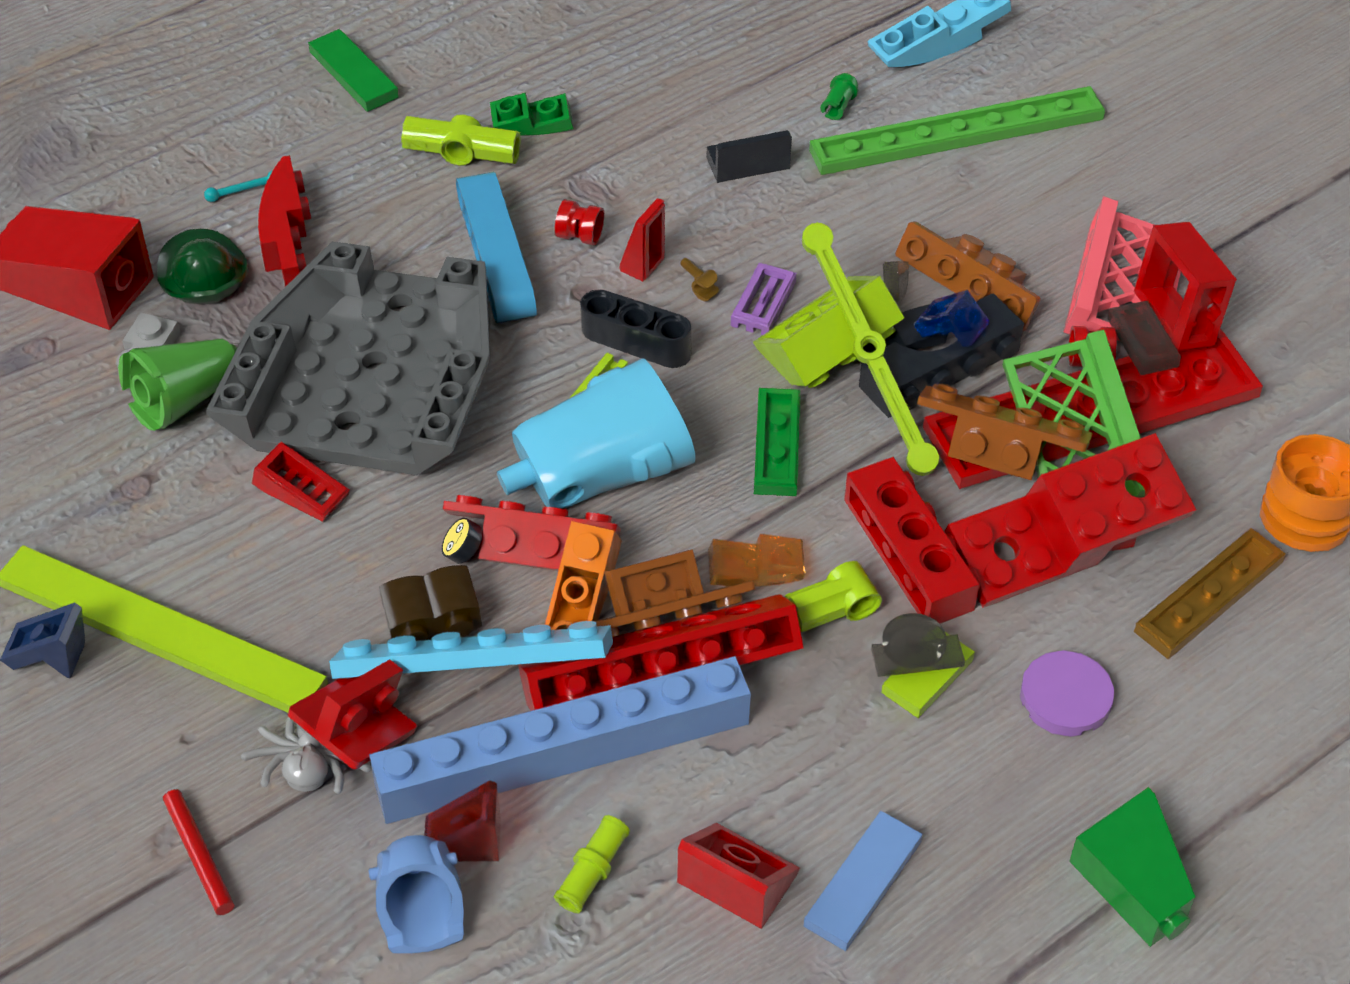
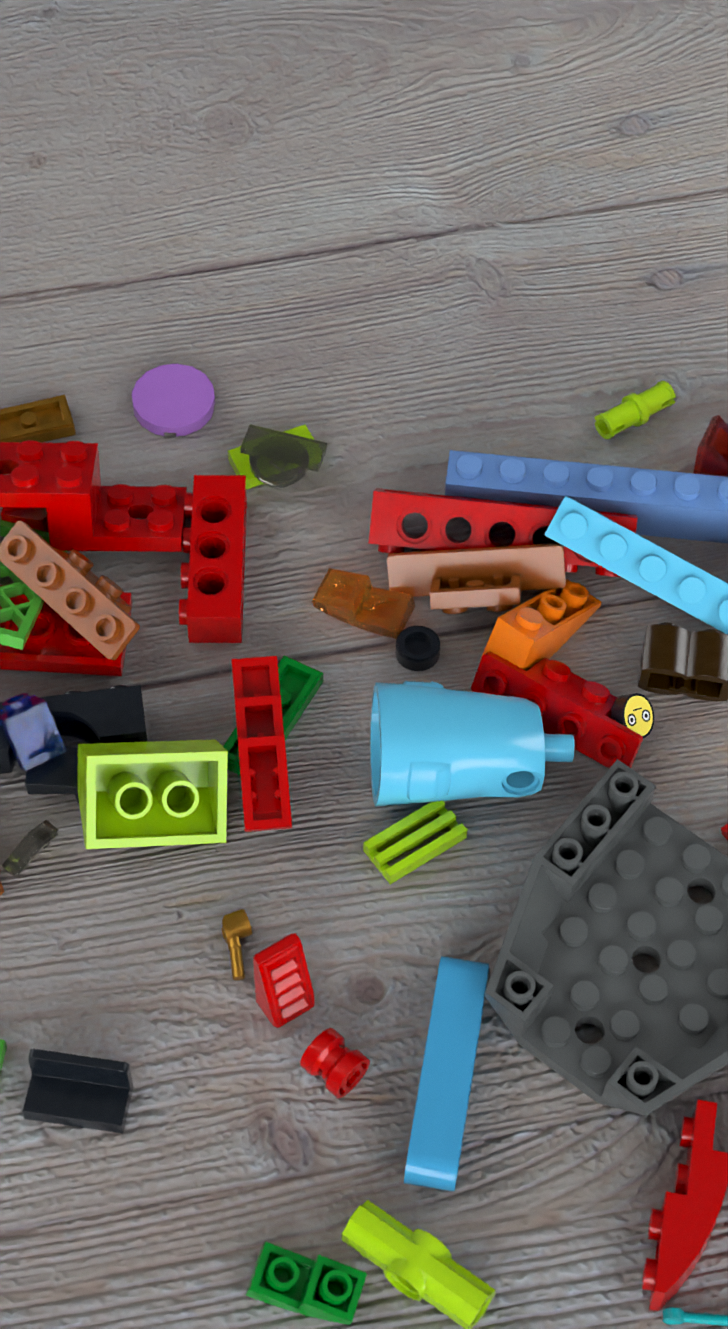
camera: 155 degrees left, 5 degrees up
(636, 328) = (342, 871): black beam -> none
(685, 537) = (417, 648): none -> black tile
(734, 872) = (526, 359): red slope -> none
(754, 320) = (191, 904): medium lavender tile -> none
(765, 395) = (261, 744): none -> red slope
(843, 593) = (305, 536): lime piece -> none
(862, 880) = (427, 332): medium blue tile -> none
(921, 456) = (141, 710): lime piece -> none
(1137, 868) = (220, 259): green slope -> none

